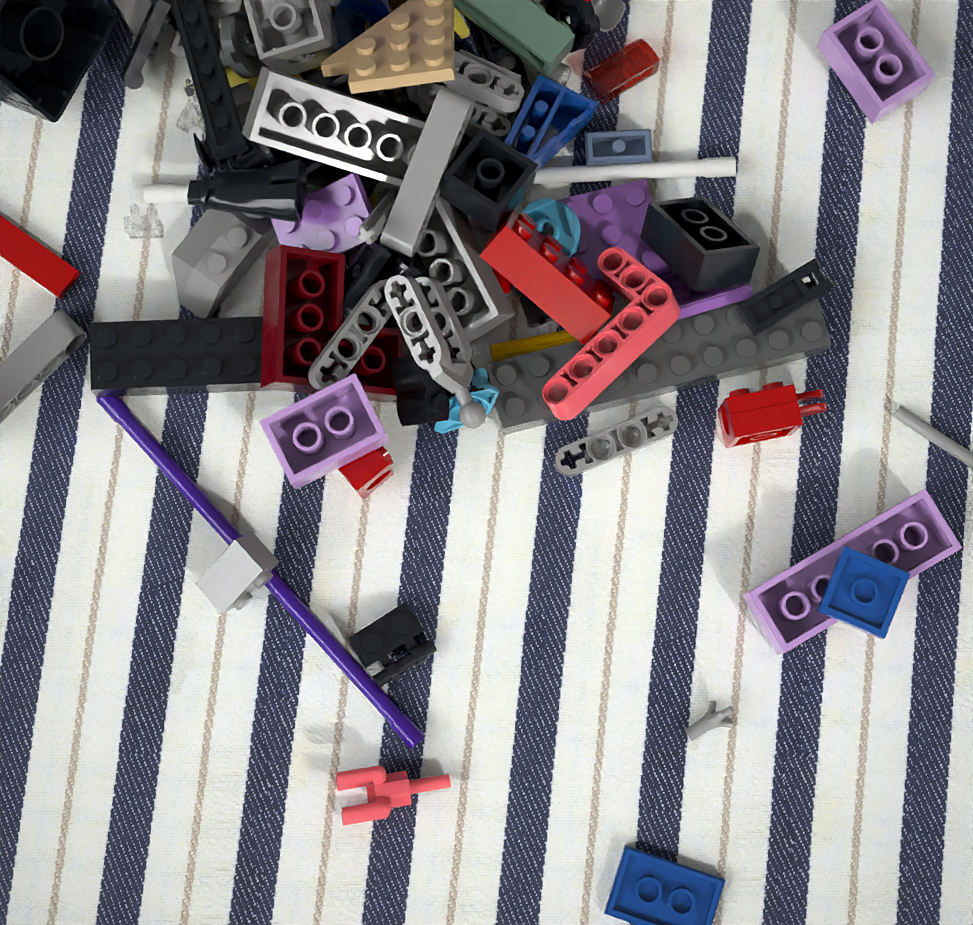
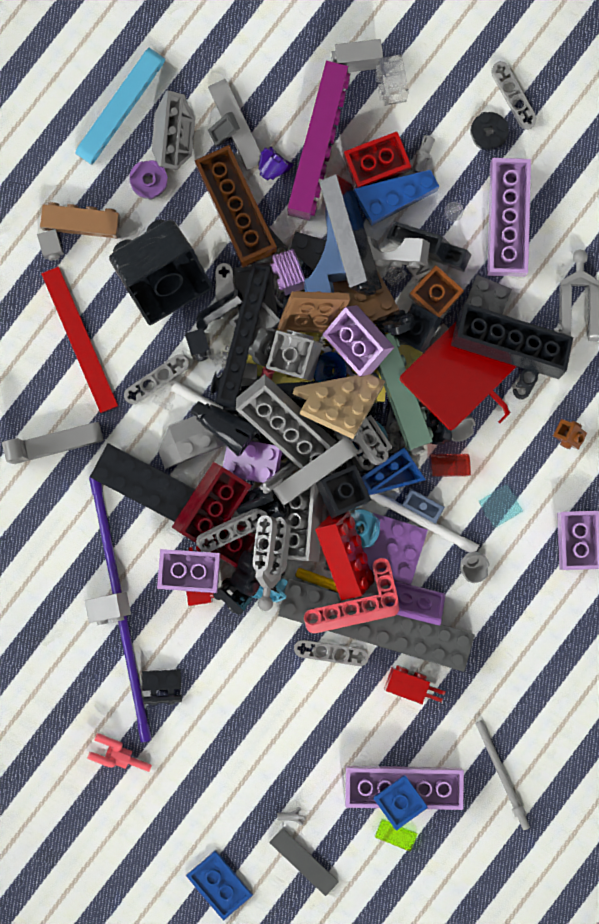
camera: 25 degrees right, 5 degrees up
(109, 199) = (158, 382): none -> light grey beam
(144, 108) = (198, 345): none -> black brick
(424, 442) = (237, 601): none -> black plate
(699, 243) = (429, 583): black brick -> none
(729, 86) = (500, 506): none -> clear light blue piece
(748, 188) = (474, 567): none -> light grey hair
(771, 780) = (304, 862): none -> dark grey tile
(784, 297) = (453, 636): black plate -> none
(882, 655) = (401, 838): none -> clear neon green tile

